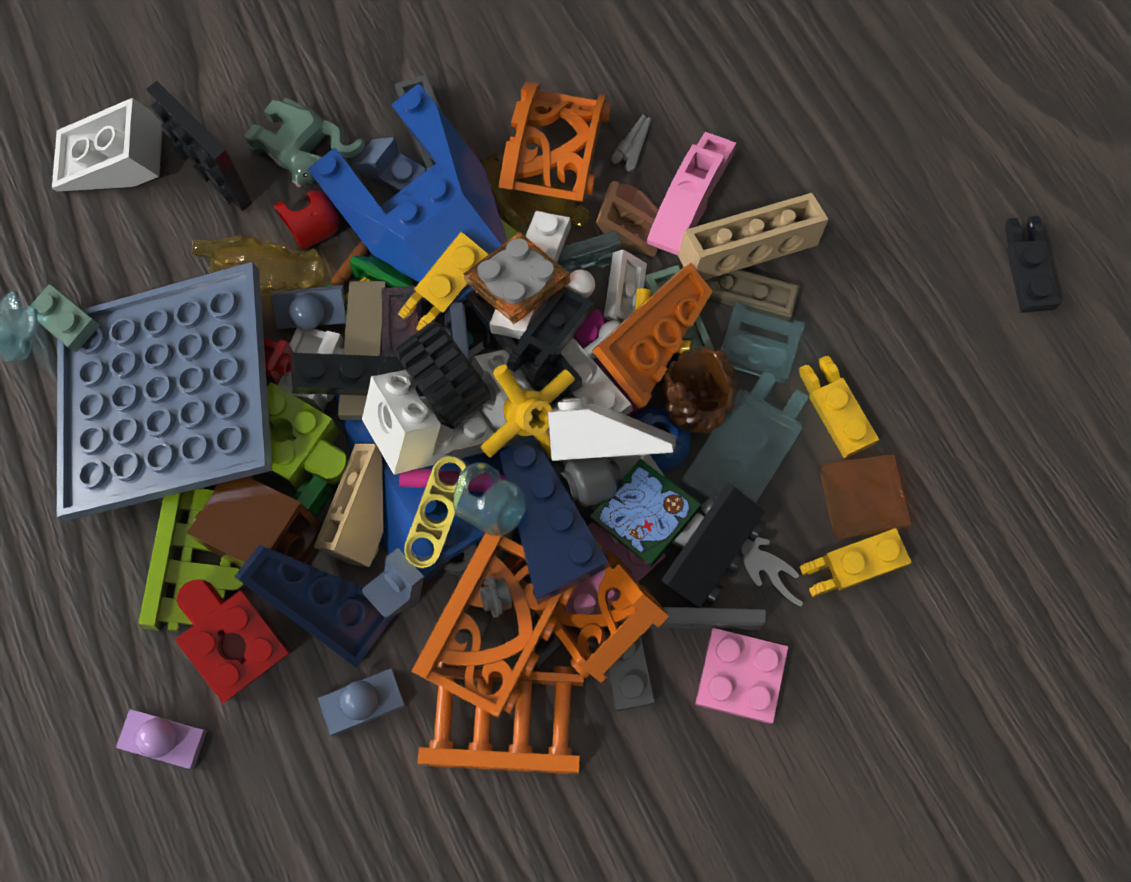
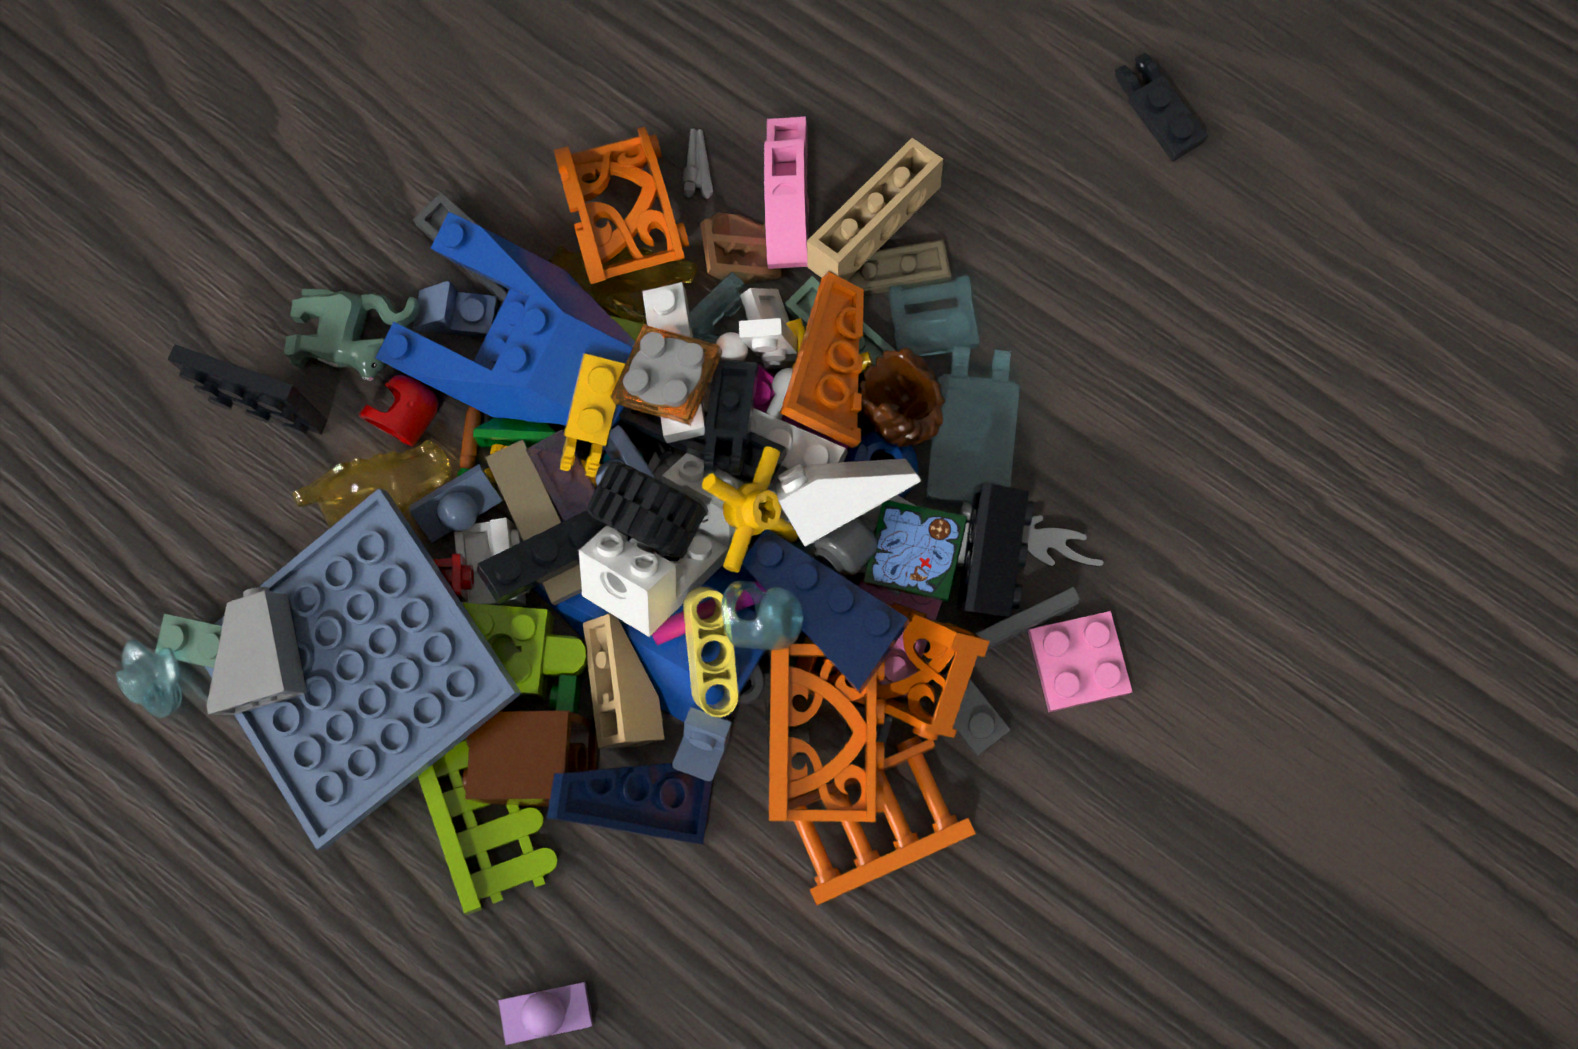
camera: 25 degrees left, 5 degrees up
(93, 344) = (255, 655): none -> light grey slope
(108, 149) = (140, 438): white slope -> none
(228, 639) = (562, 881): red brick -> none
(361, 702) = (725, 875): sand blue tile -> none
(495, 595) = (814, 706): dark grey plate -> none
(613, 289) = (768, 338): none -> white plate
(838, 409) = (1043, 348): yellow hinge -> none
(859, 562) = (1138, 493): yellow hinge -> none
(864, 496) = (1111, 425): clear orange plate -> none

